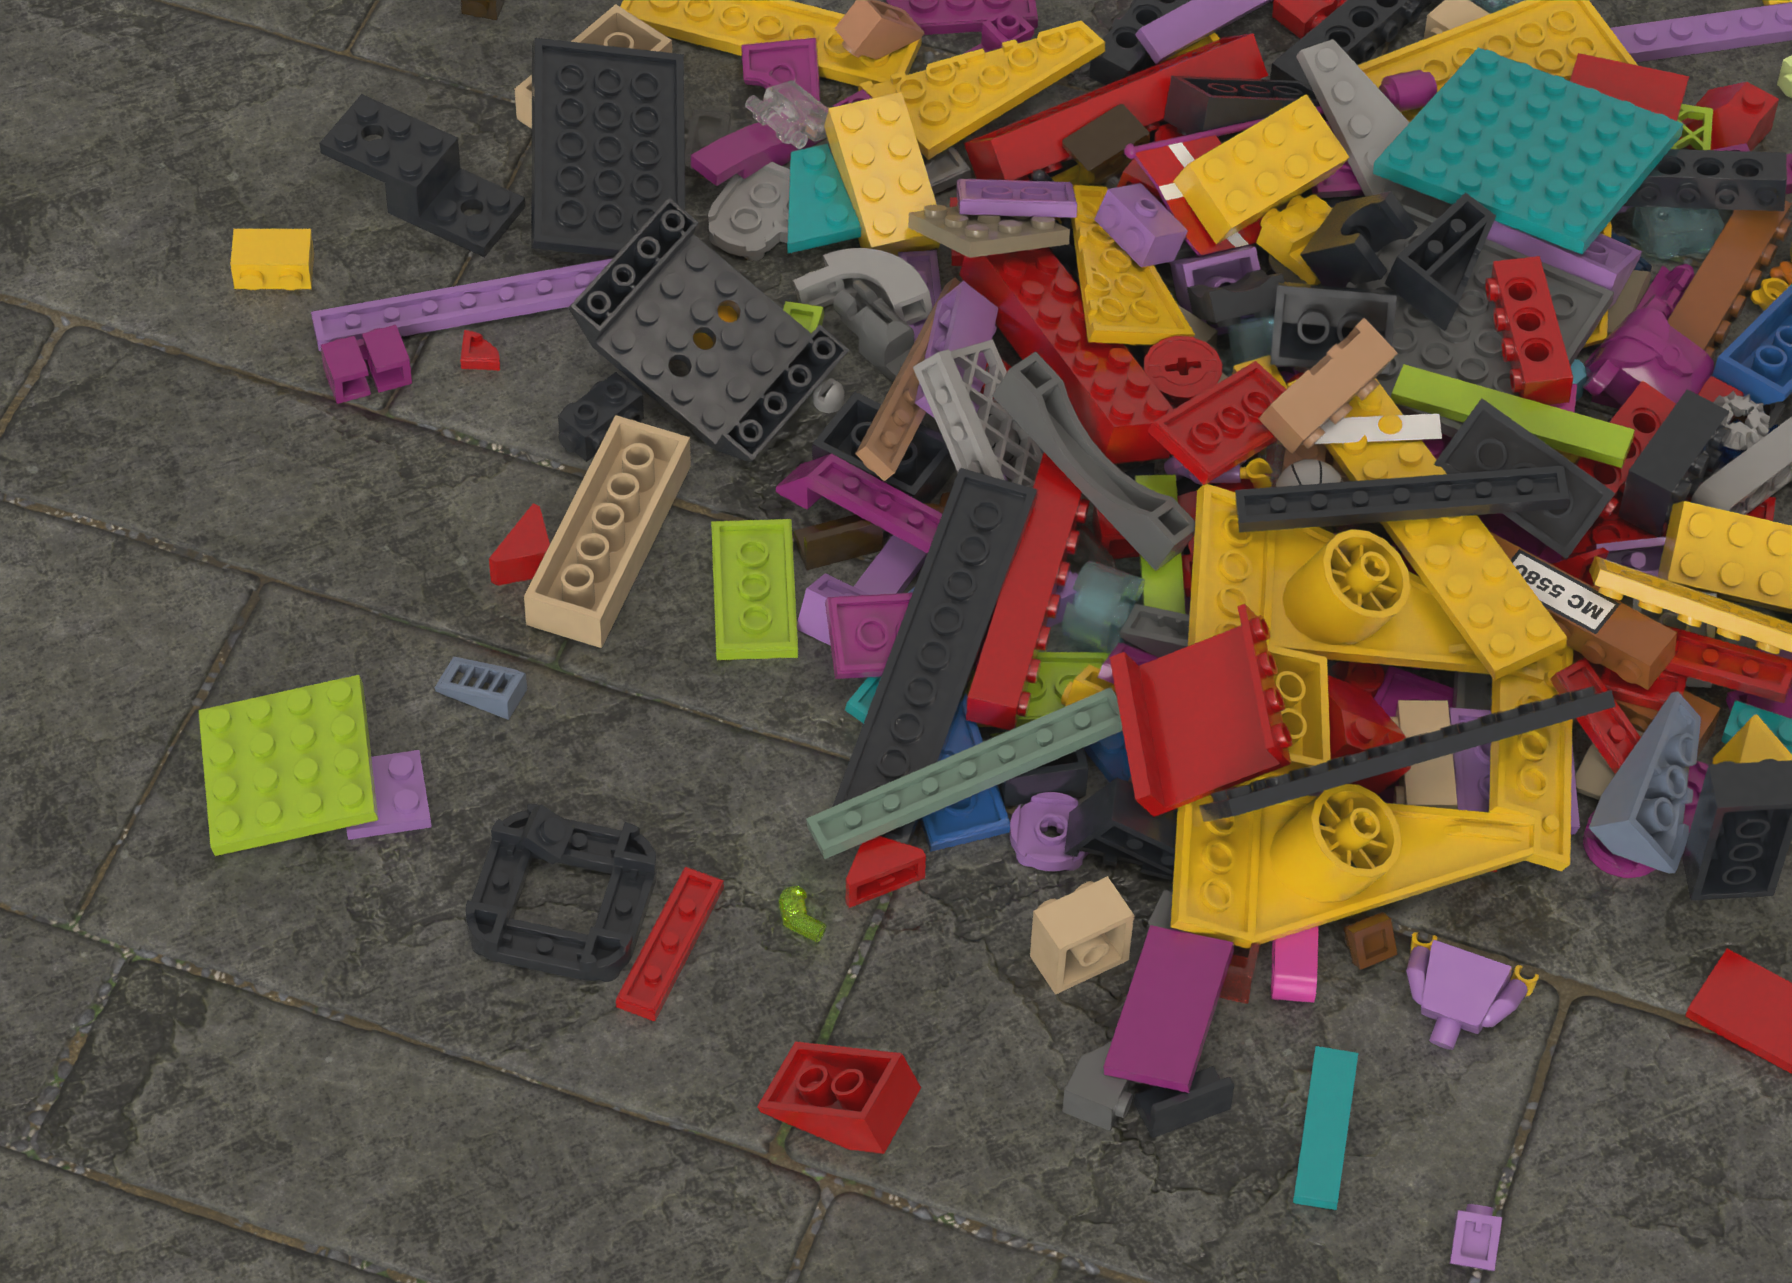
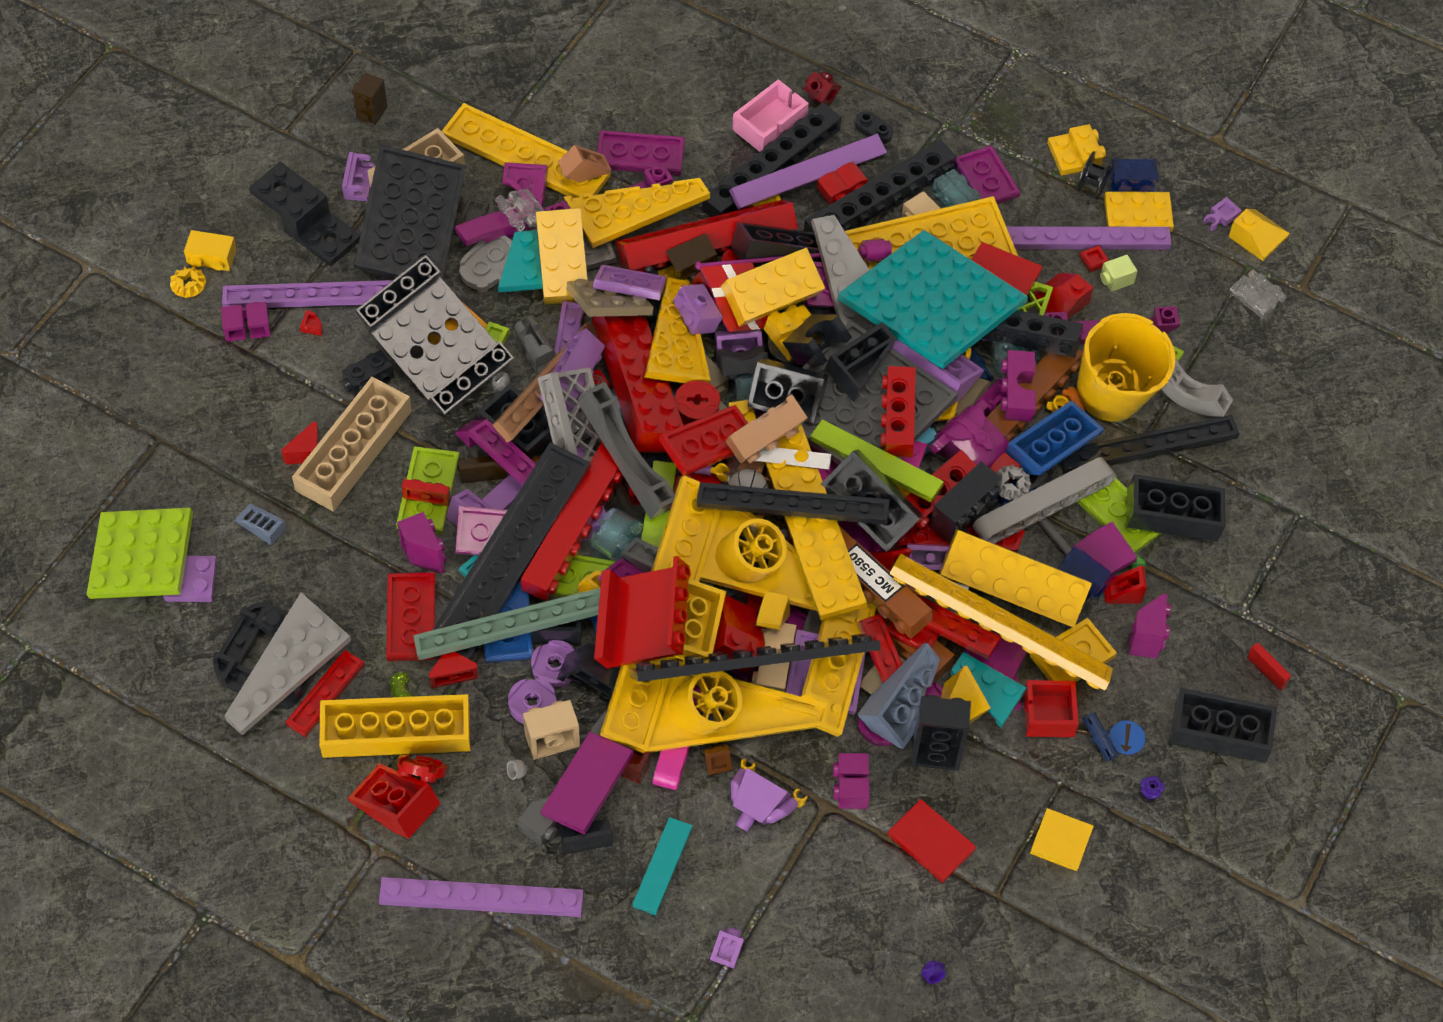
camera: 10 degrees right, 5 degrees up
(255, 327) = (191, 288): none -> yellow gear
(494, 106) = (356, 179): none -> medium lavender hinge
(606, 884) = (295, 653): none -> light grey wing
(757, 589) = (426, 492): none -> red plate
(774, 672) = (421, 544): none -> magenta slope
(777, 792) = (409, 612): none -> red tile
(811, 973) = (394, 726): none -> yellow brick
(881, 271) = (543, 311): light grey arch -> none
(888, 1031) = (422, 766): none -> red plate
(1010, 883) = (529, 689): none -> medium lavender plate
(1031, 1229) = (481, 897): none -> medium lavender plate
(1033, 1006) = (516, 769): none -> light grey hinge
(1406, 680) = (773, 611): none -> yellow slope
(1605, 945) = (853, 783): none -> magenta piece
(1708, 293) = (1018, 402): none -> magenta arch
(1759, 59) = (1093, 258): none -> red tile

